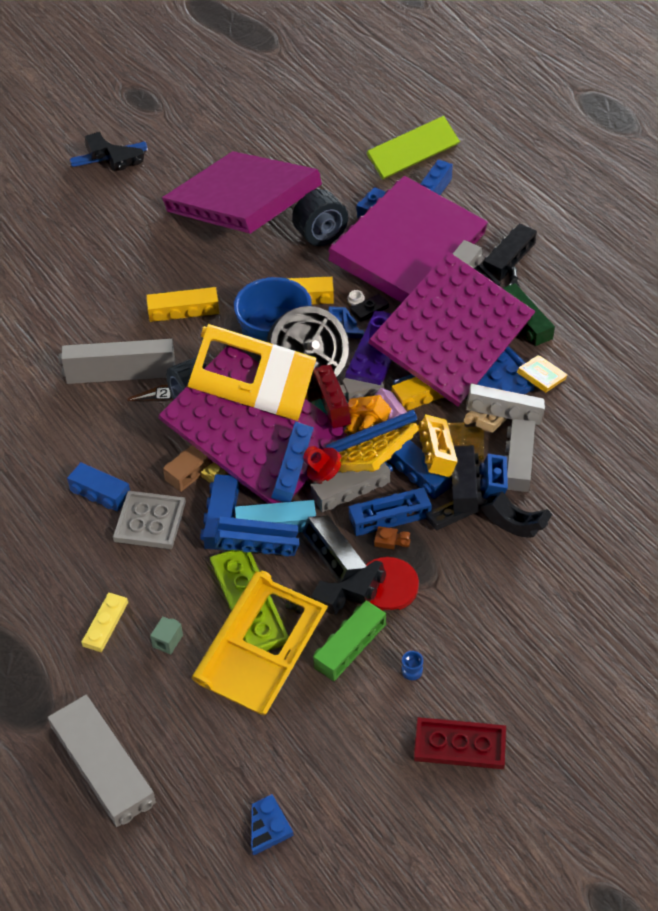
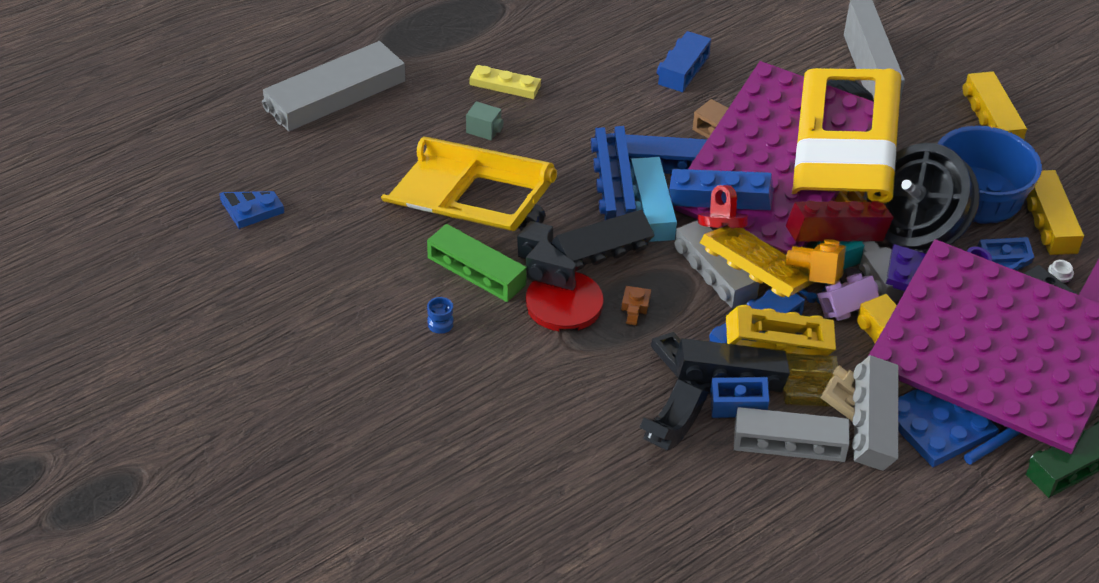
camera: 85 degrees right, 5 degrees down
(149, 519) = (643, 102): light grey plate -> none
(234, 572) = (573, 178): lime tile -> none
(373, 431) = (782, 259): blue axle -> none
(389, 511) = (663, 270): blue brick -> none
(460, 743) = (332, 357): dark red plate -> none
(542, 373) = (957, 467): tile -> none

